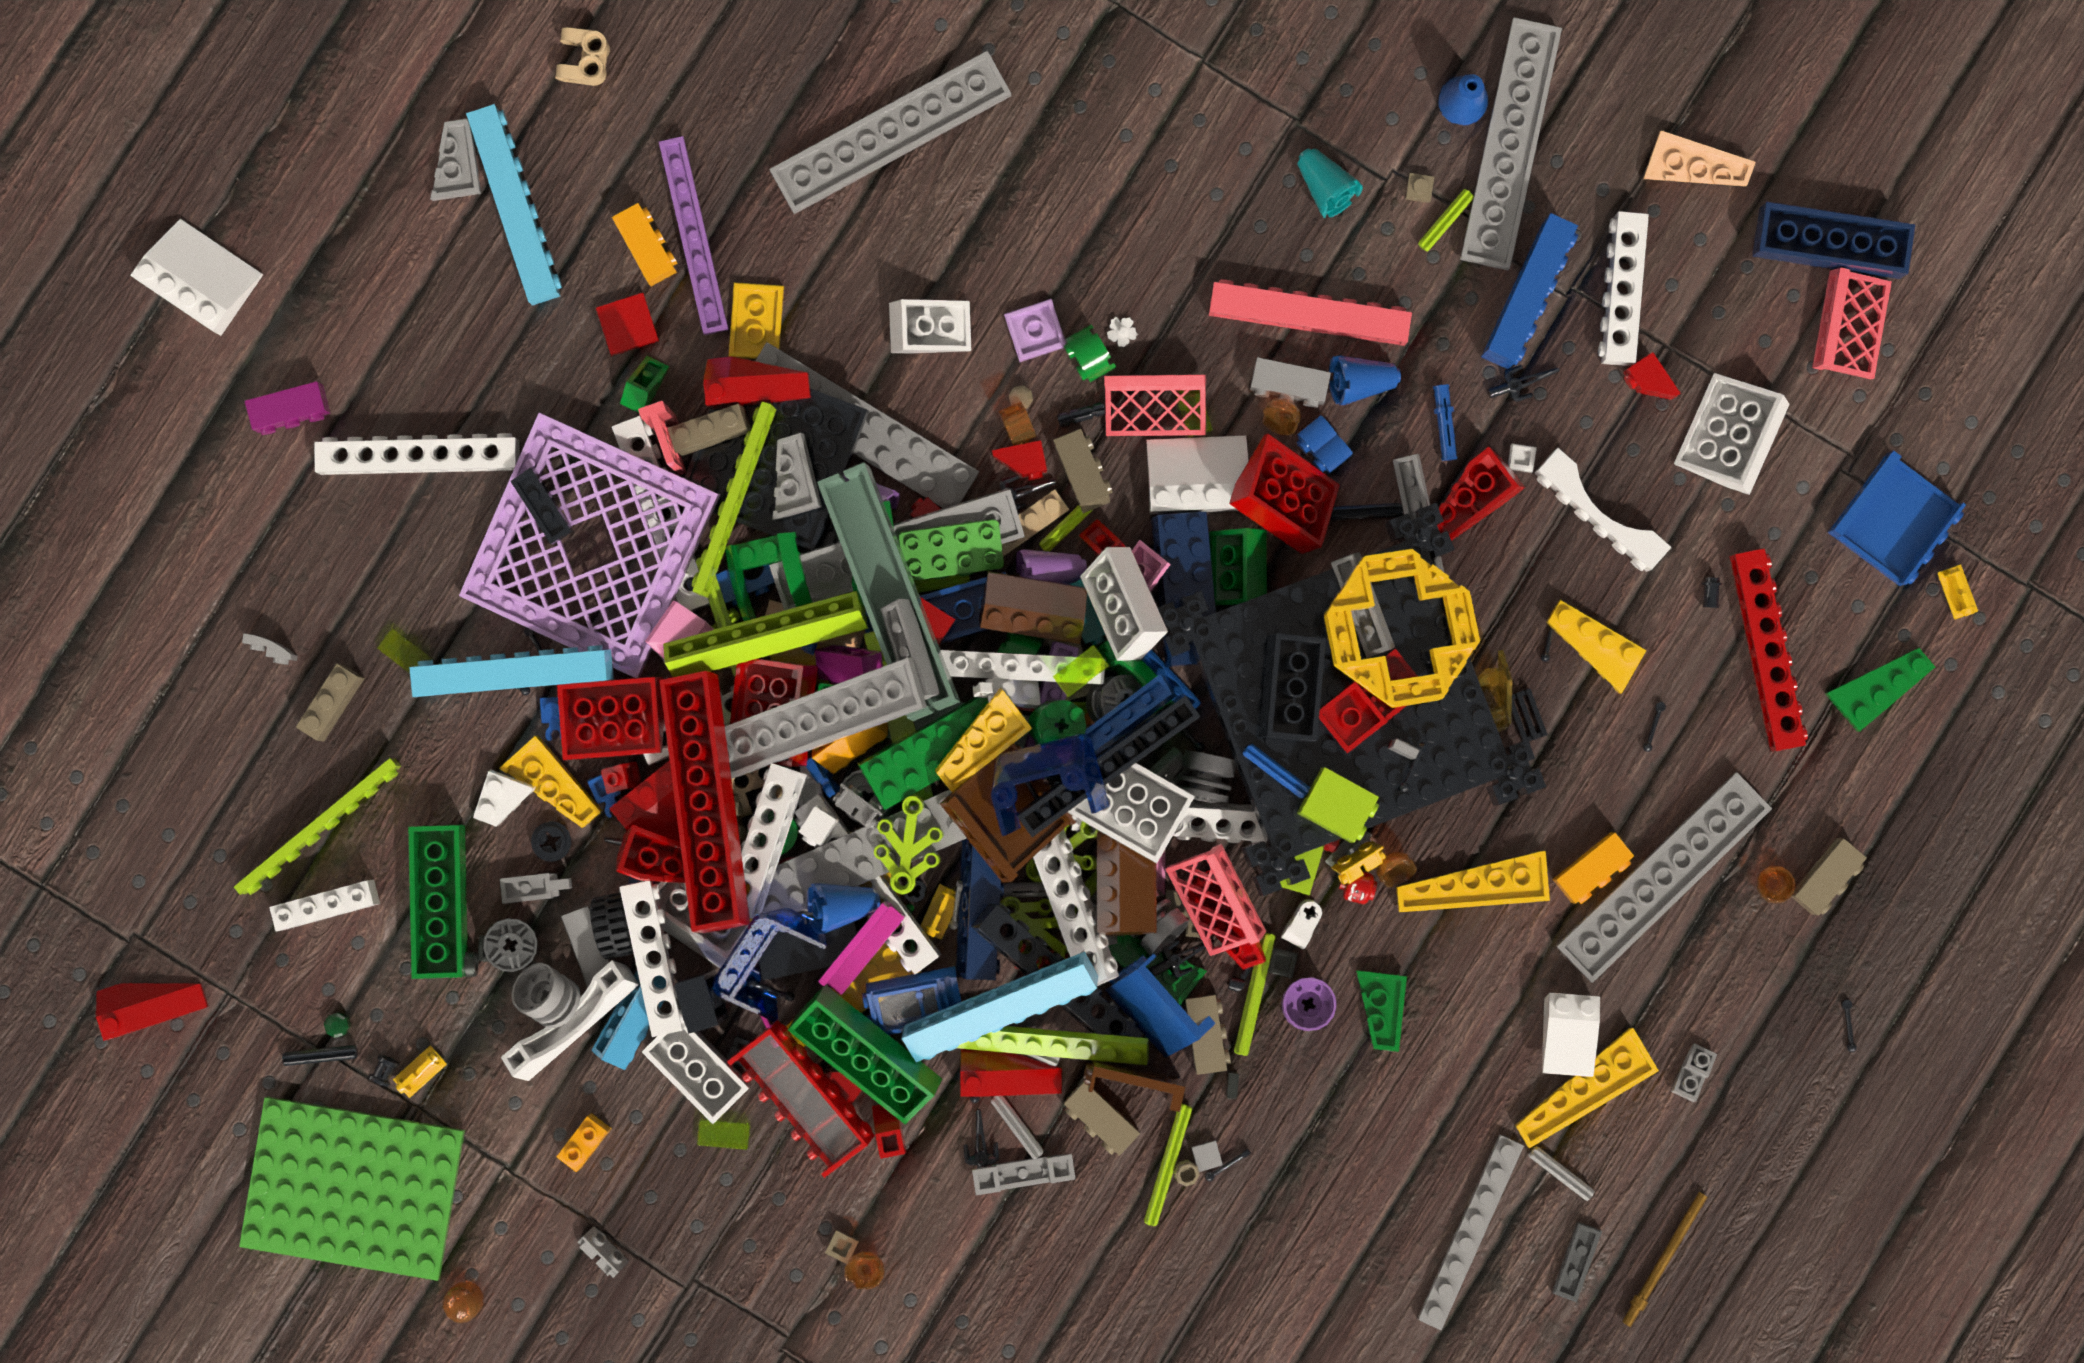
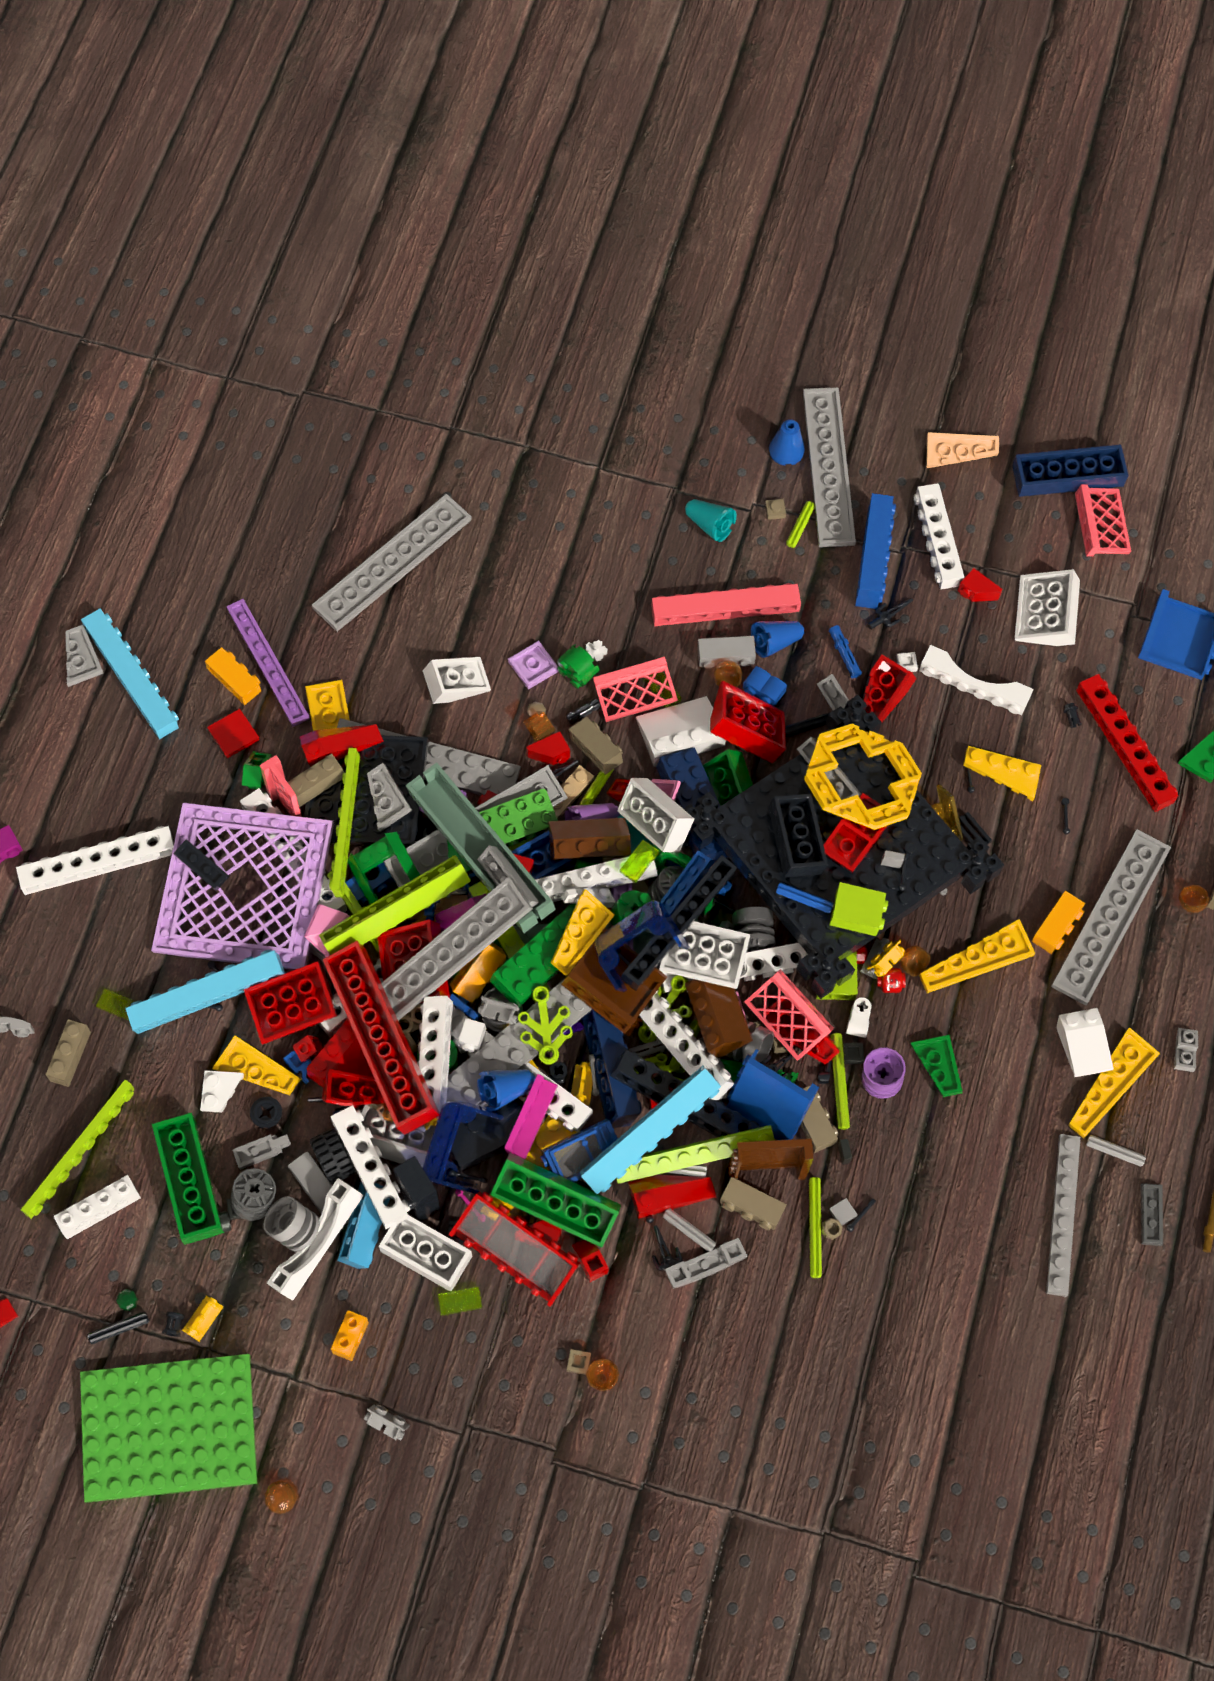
camera: 20 degrees left, 20 degrees down
(550, 715) = (244, 1020): blue plate -> none
(589, 58) = (156, 577): tan piece -> none

